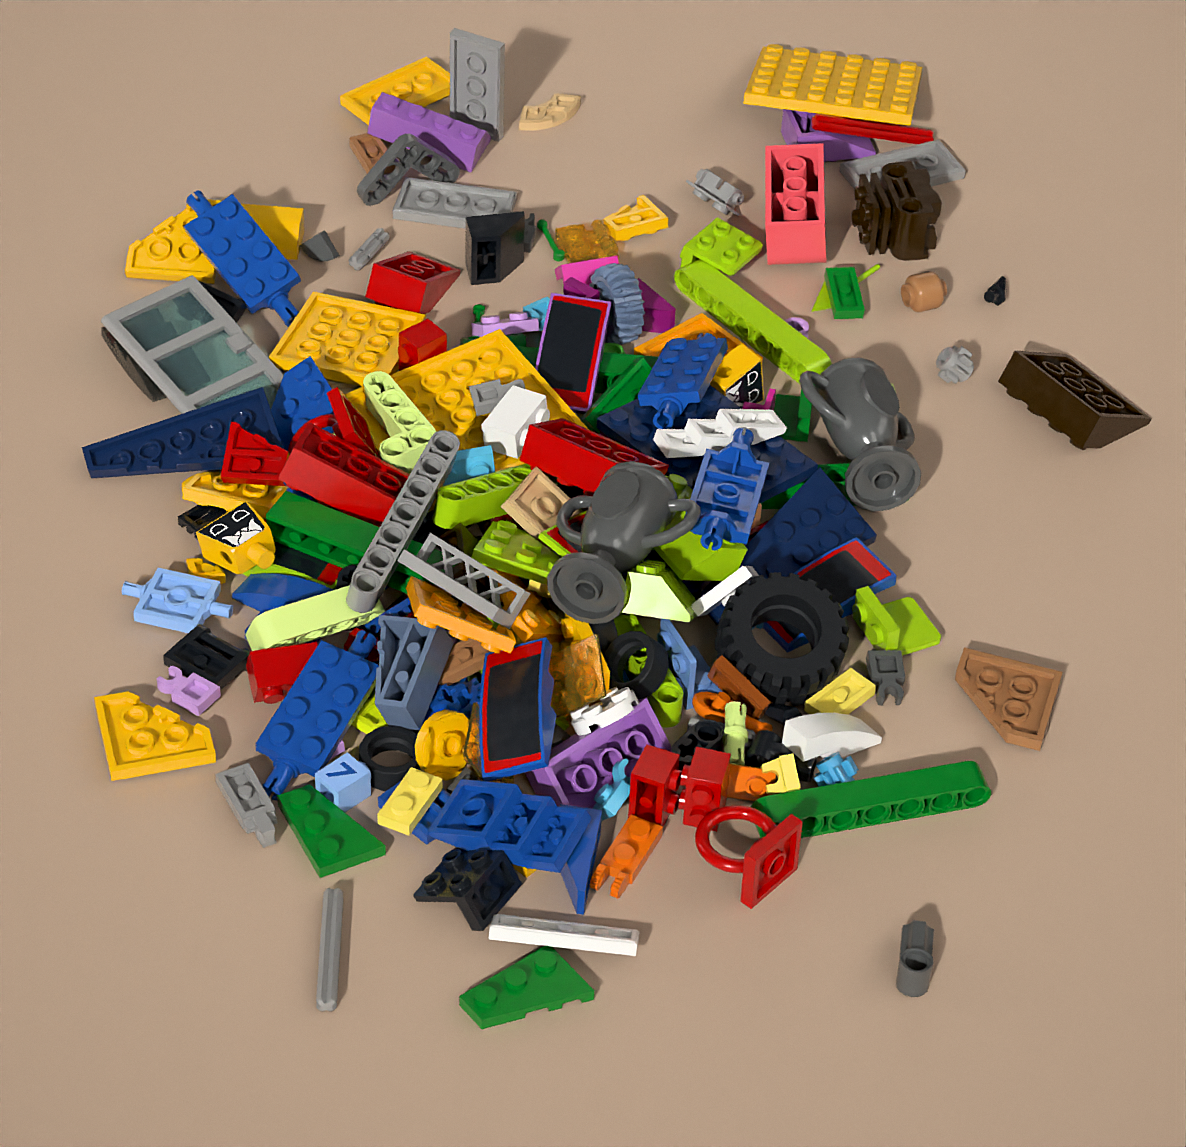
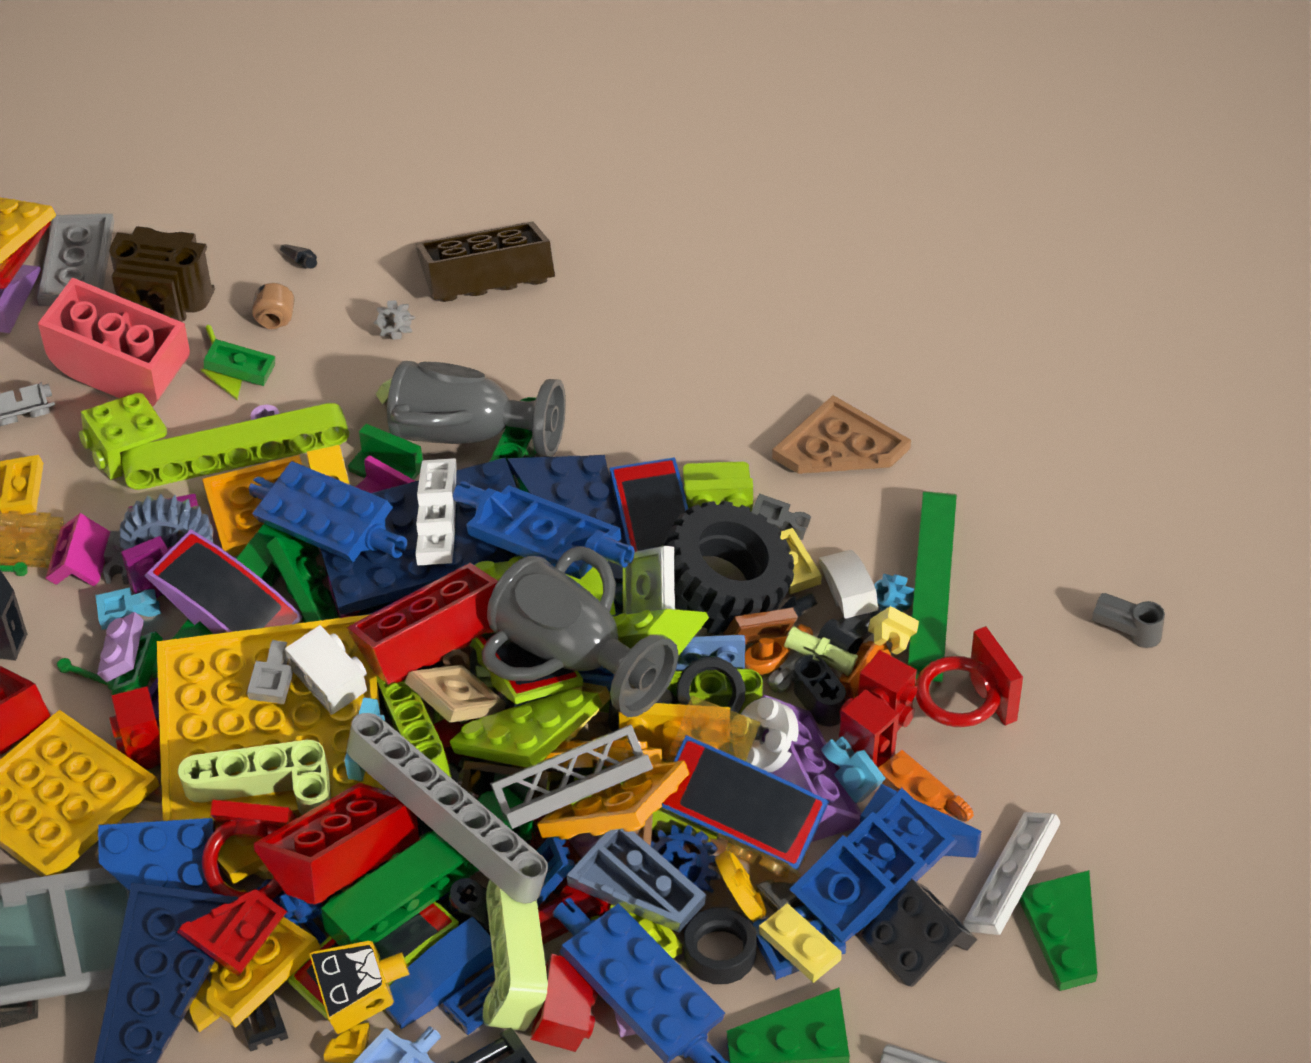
camera: 65 degrees left, 5 degrees up
(344, 782) = (741, 995): light blue brick -> none

